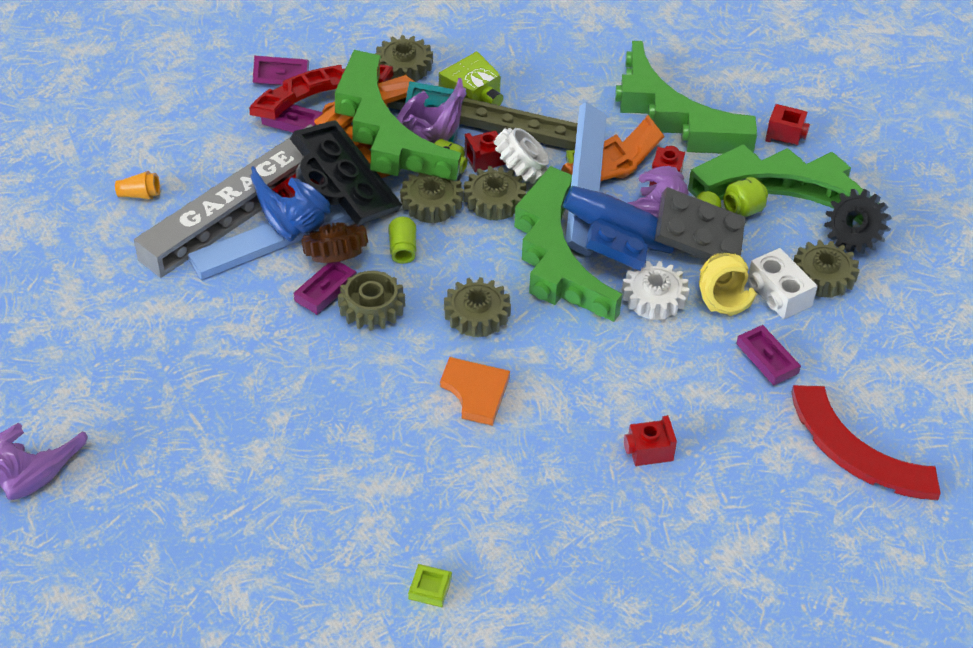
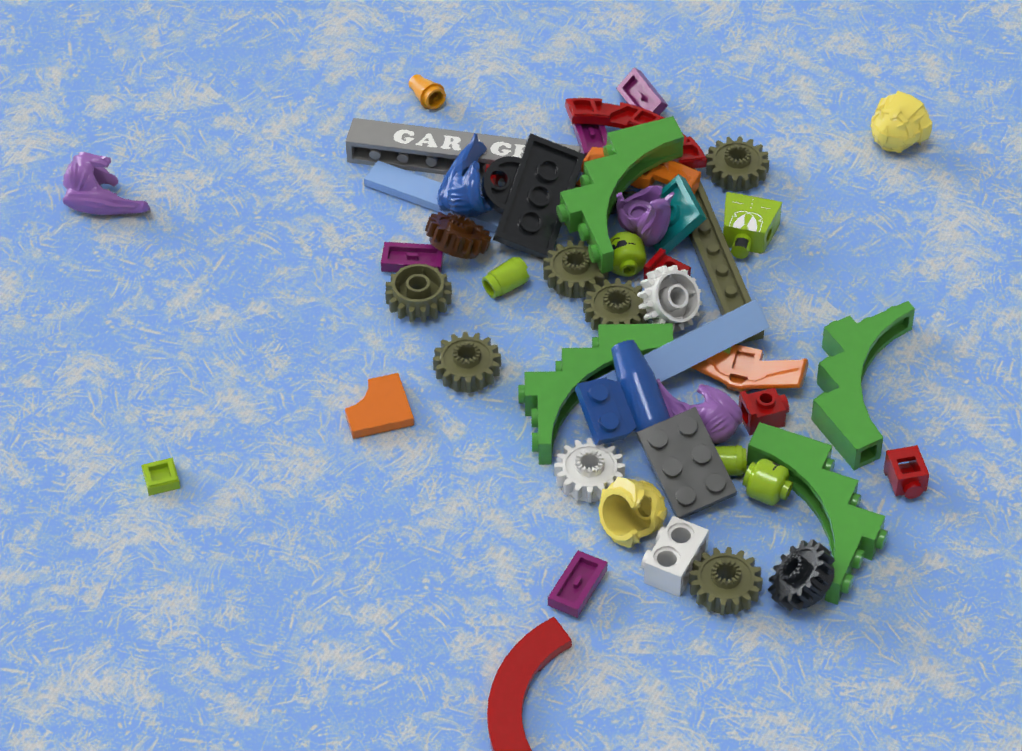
camera: 60 degrees right, 0 degrees up
(651, 442) = (406, 544): red brick -> none

